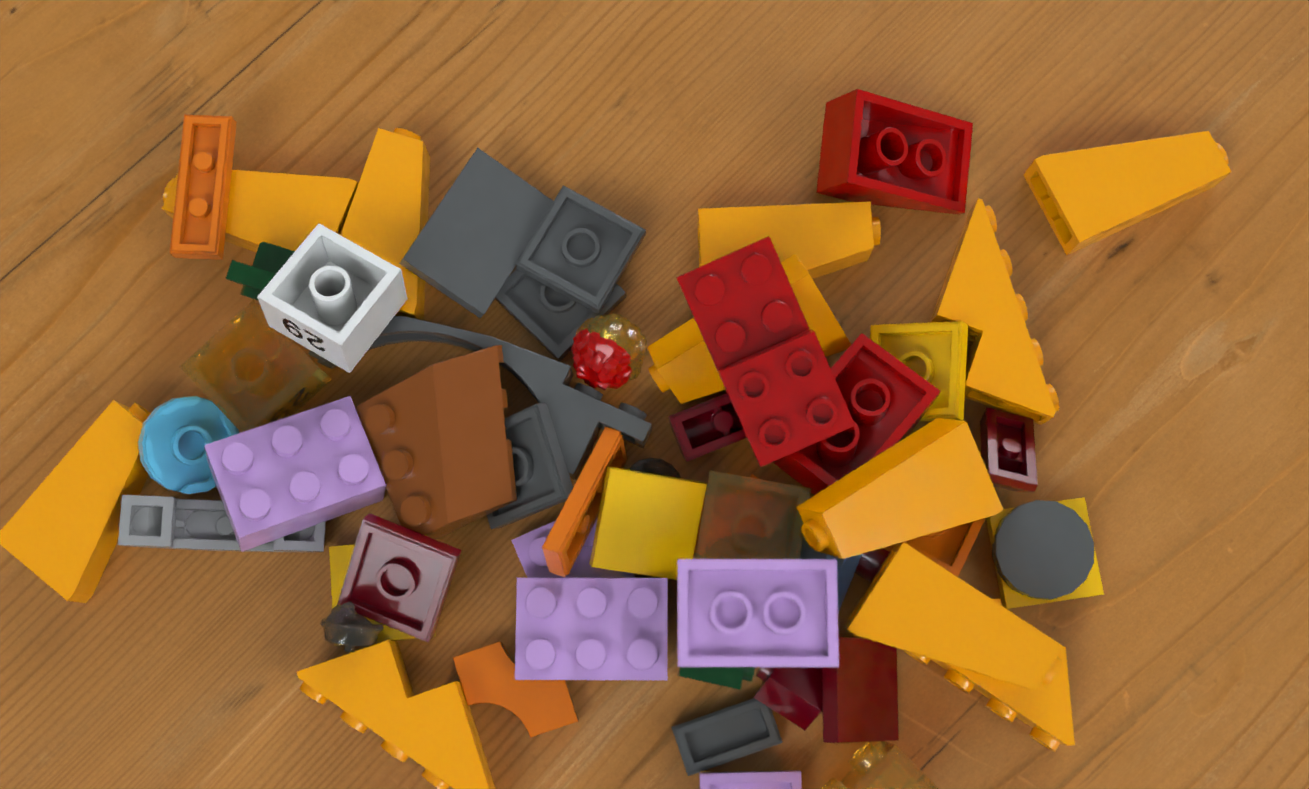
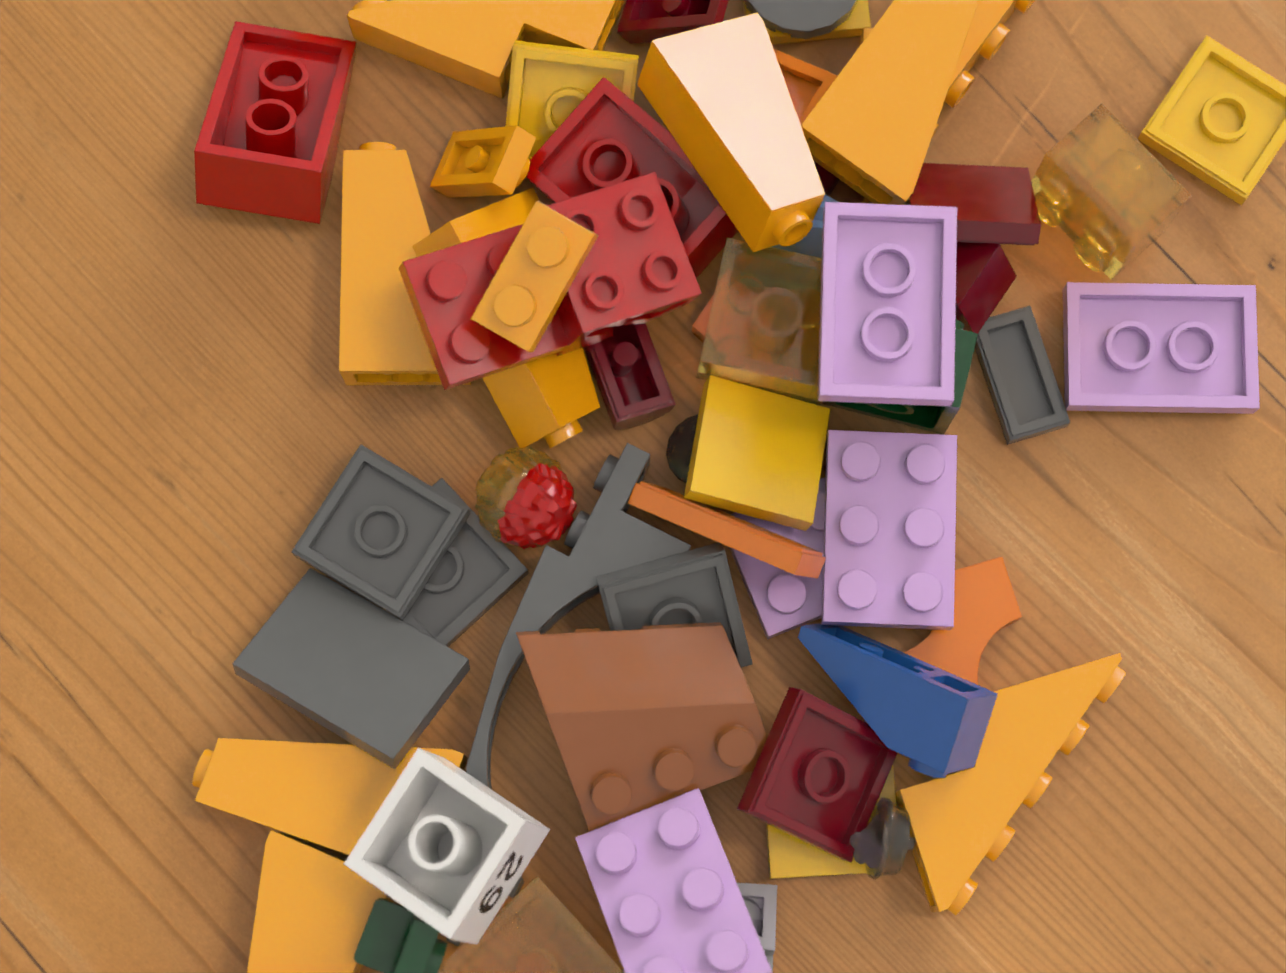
camera: 90 degrees left, 0 degrees up
(456, 641) = (906, 701): none -> blue slope
(759, 332) = (534, 277): none -> light orange plate
(868, 307) = (484, 162): none -> light orange plate

